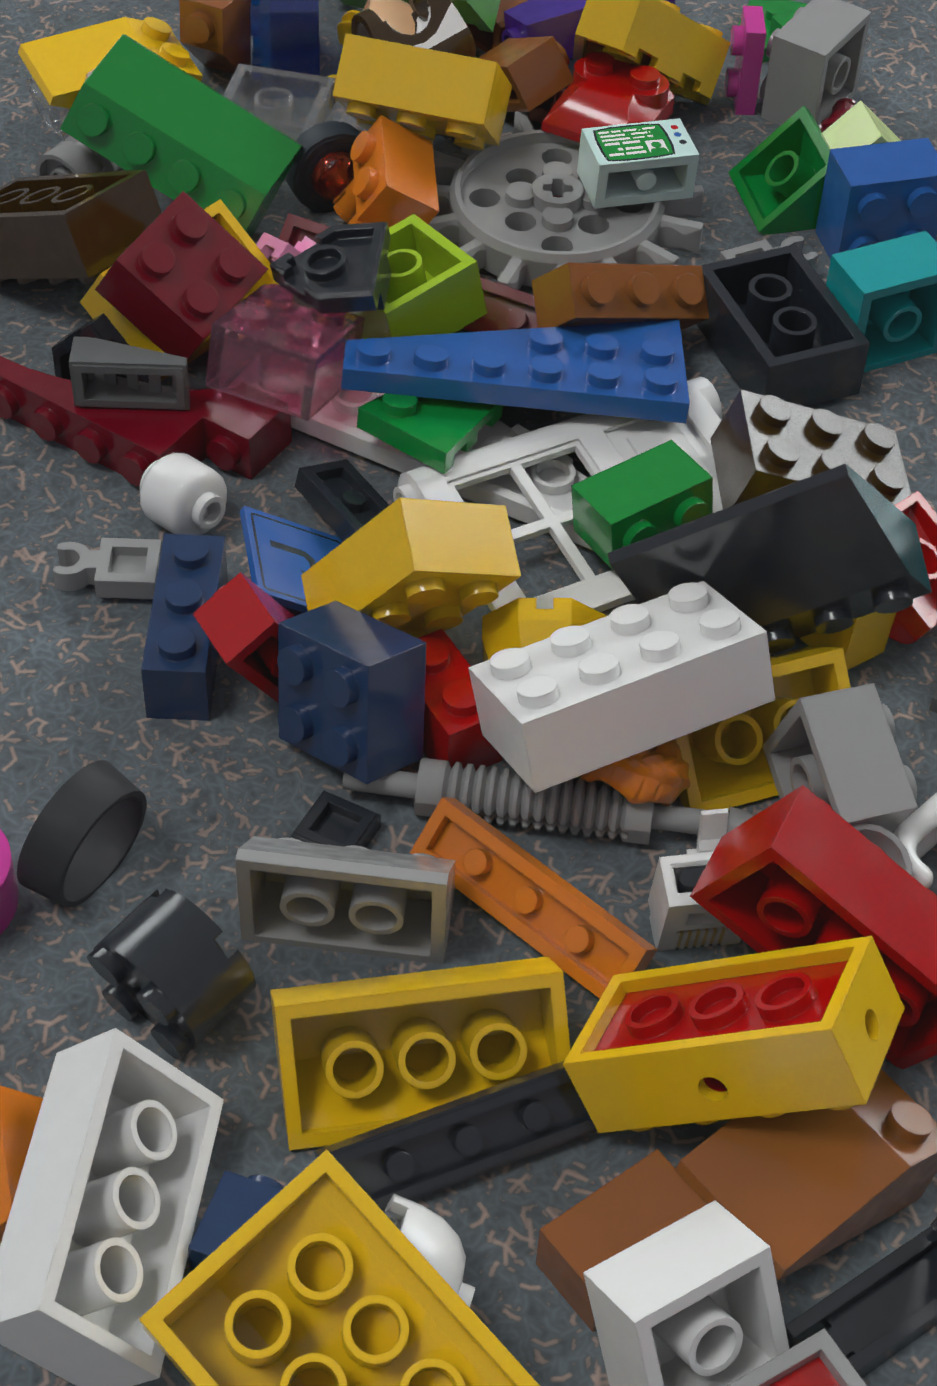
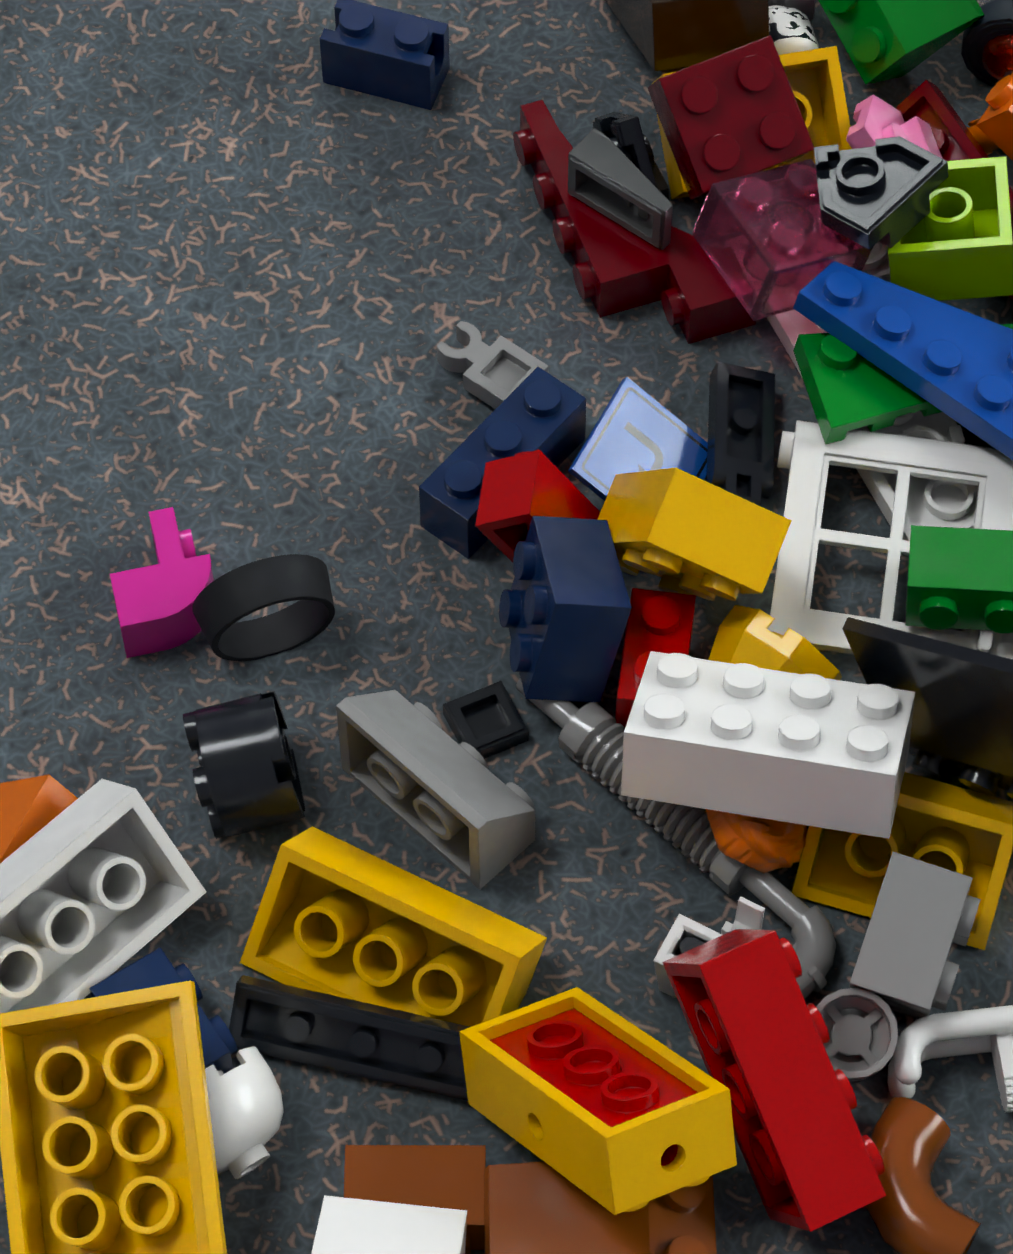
camera: 40 degrees right, 10 degrees up
(183, 494) = (601, 329): white head -> none
(532, 899) = (582, 879): orange plate -> none

